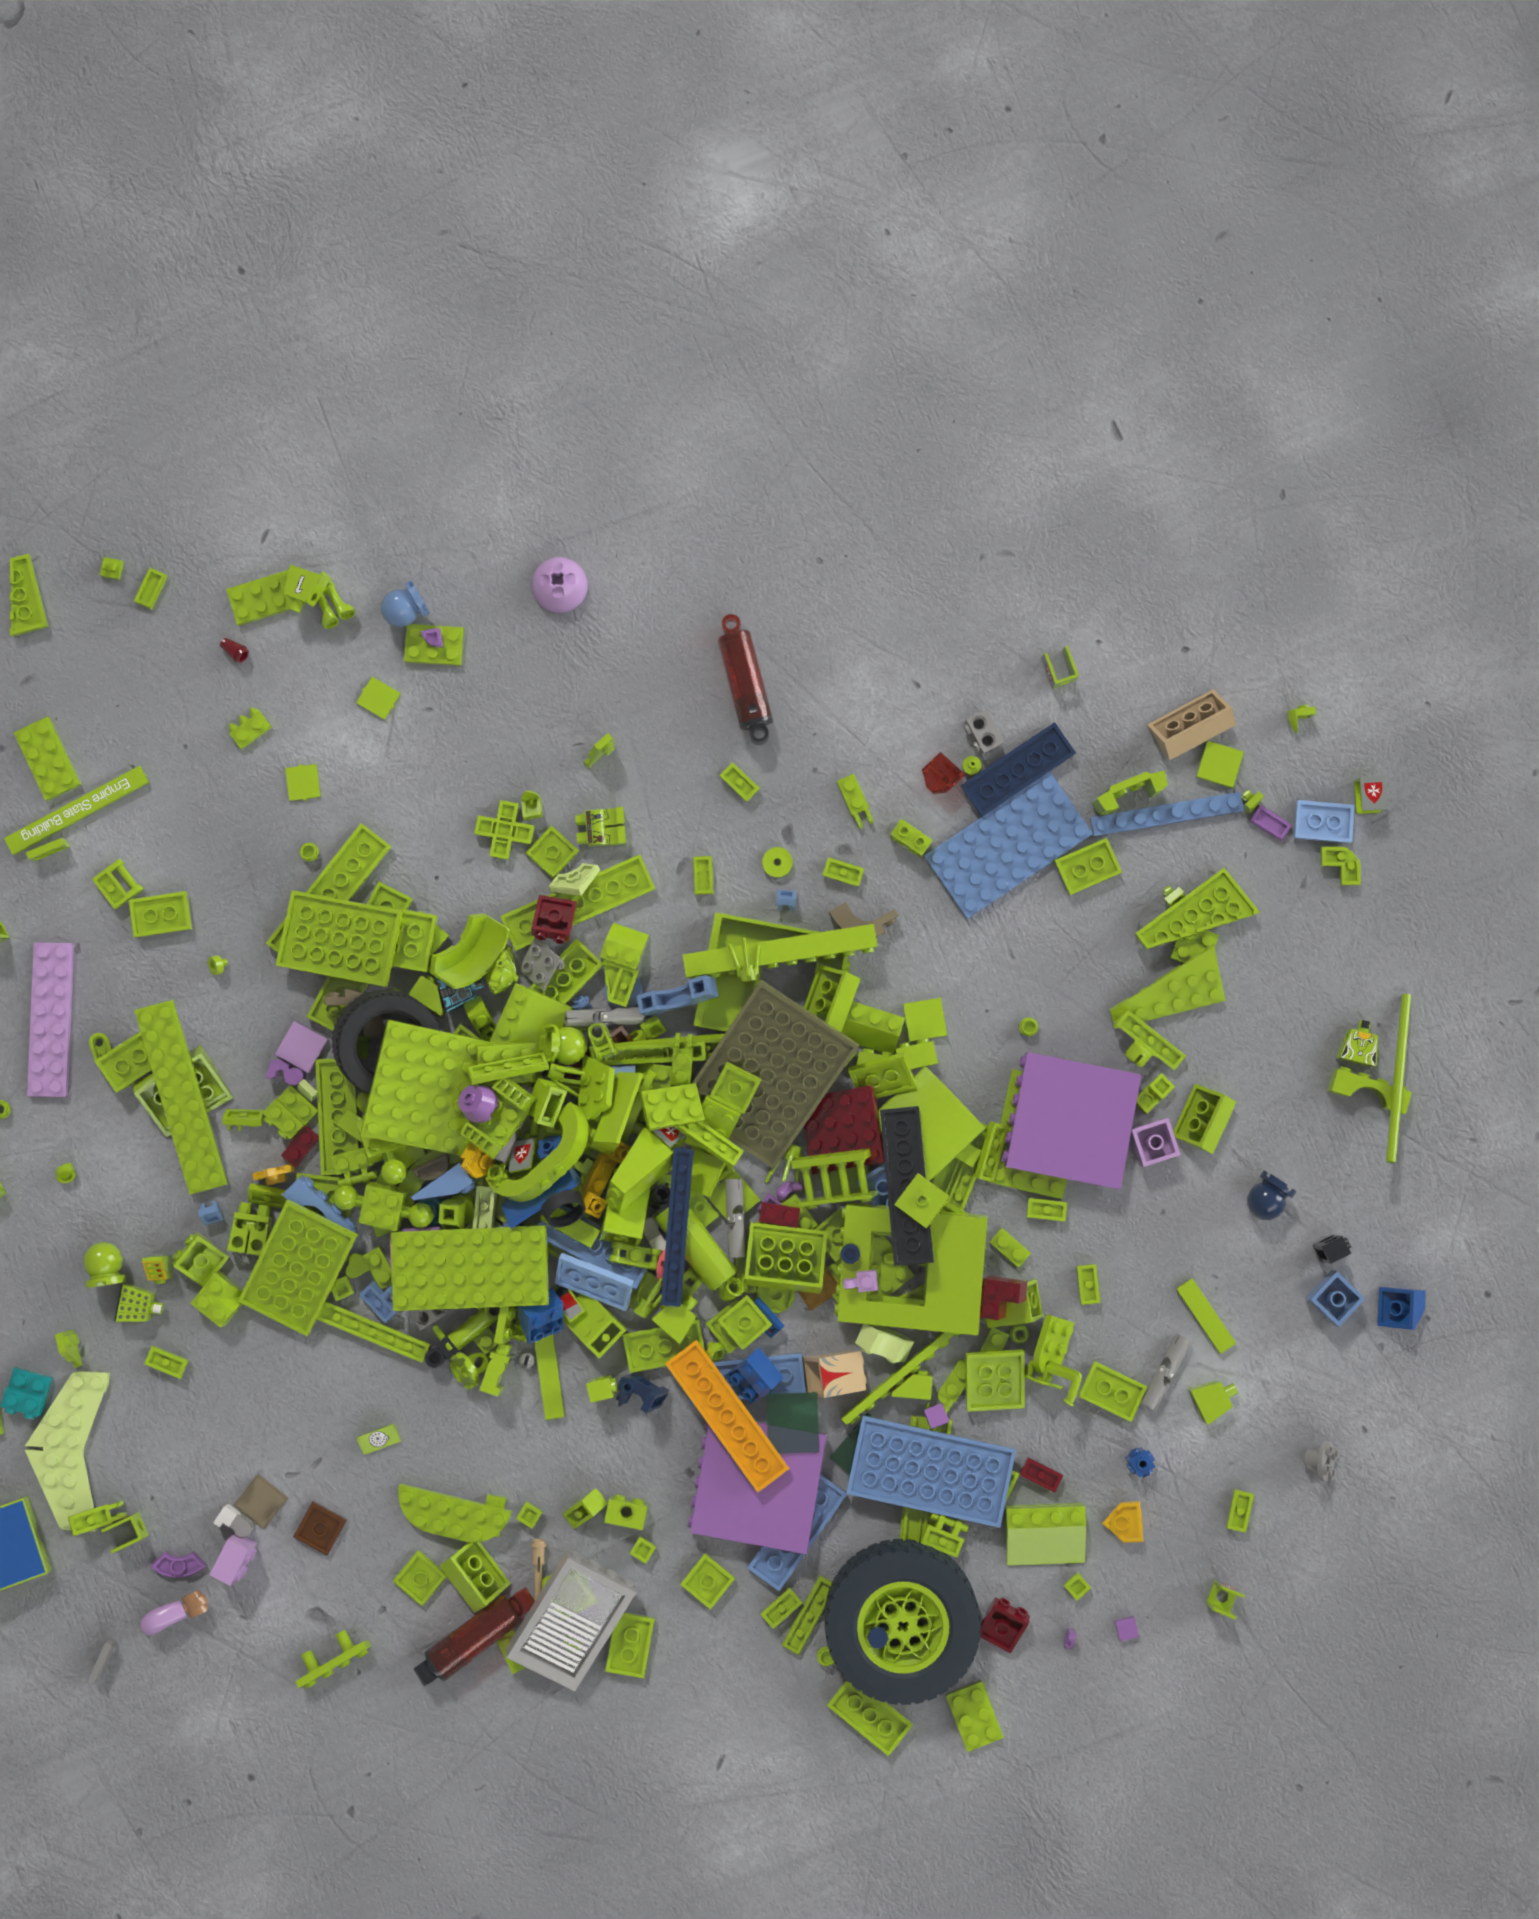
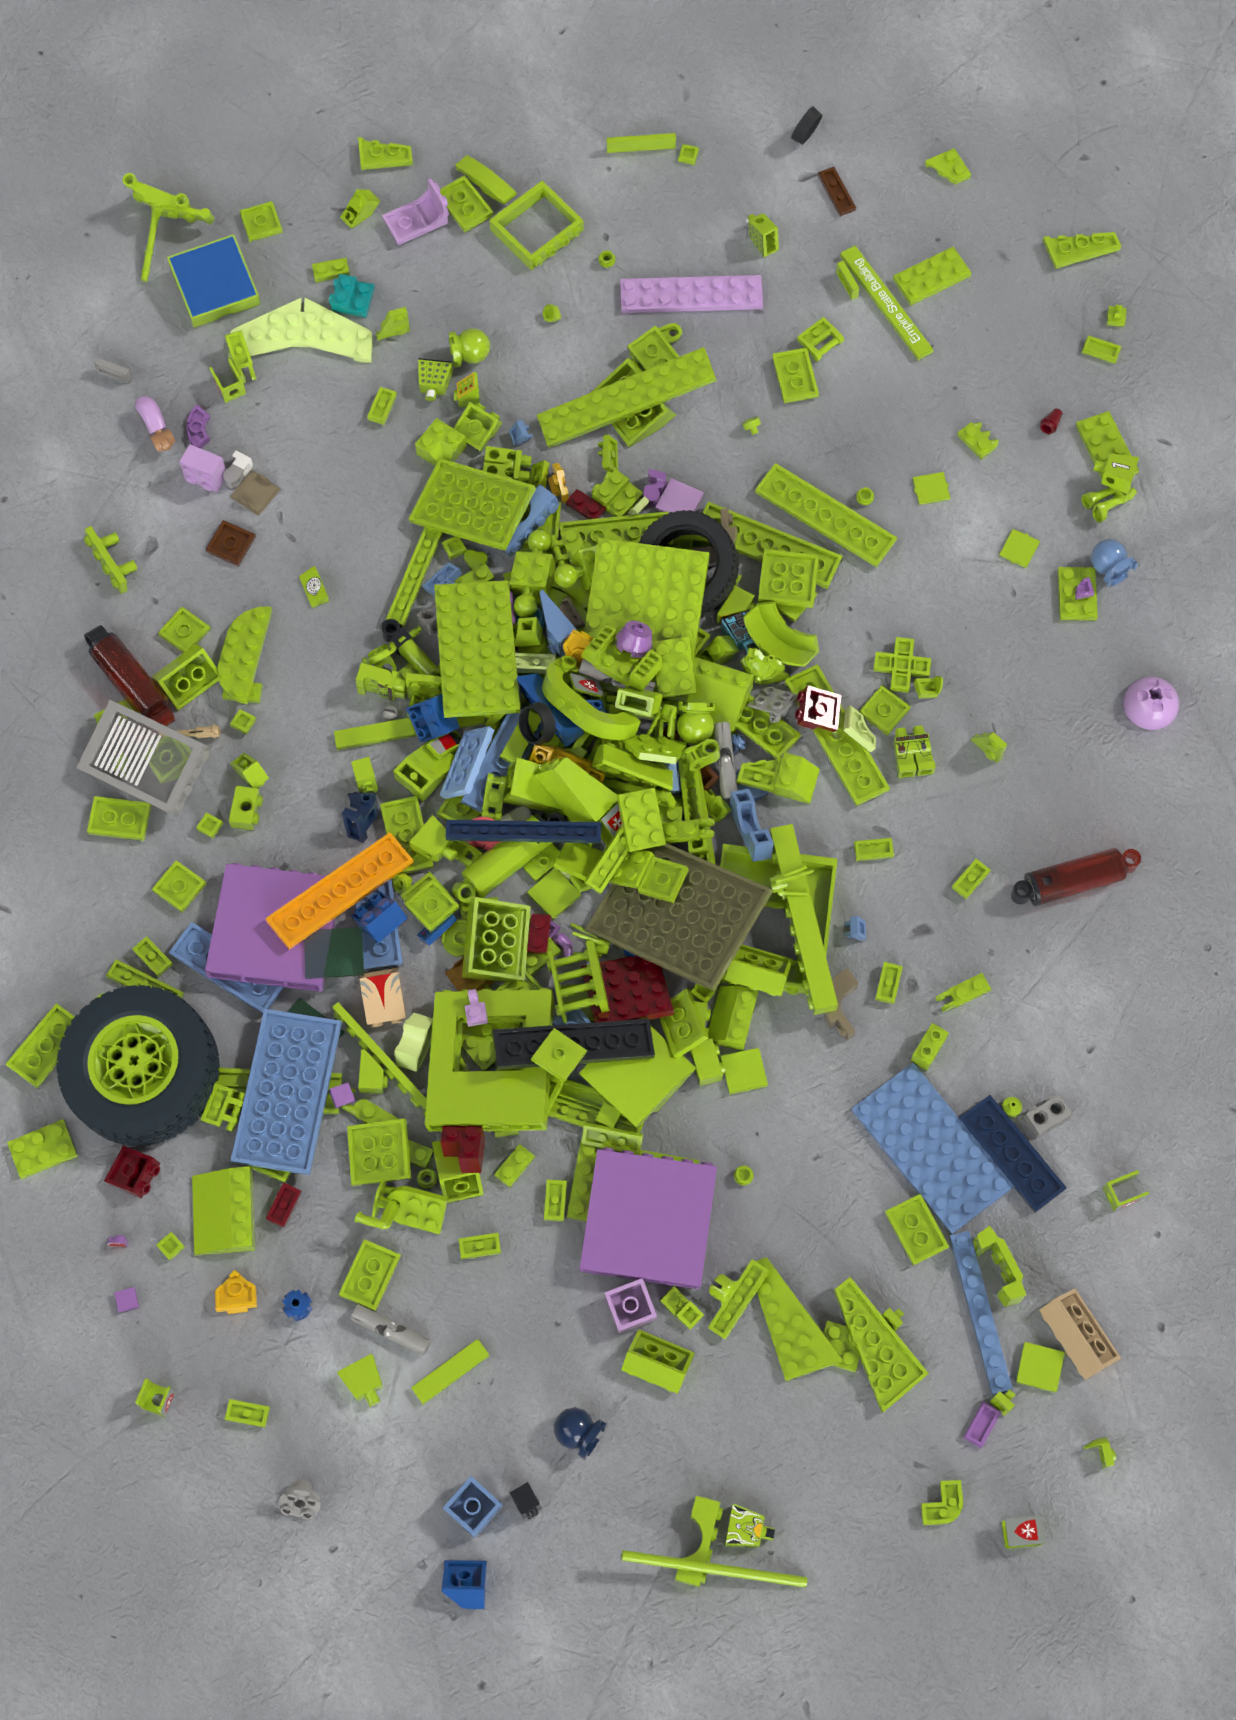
camera: 90 degrees right, 15 degrees down
(339, 938) = (784, 521): lime plate -> none
(507, 1068) = (669, 664): lime tile -> none
(644, 1307) = (445, 810): lime plant -> none
(735, 1225) = (521, 893): light grey piece -> none
(785, 866) = (889, 927): lime piece -> none
(850, 1253) = (503, 996): dark blue tile -> none
(877, 1637) = (123, 1034): dark blue tile -> none
(941, 774) = (999, 1075): clear red slope -> none
(1323, 821) = (988, 1482): light blue plate -> none

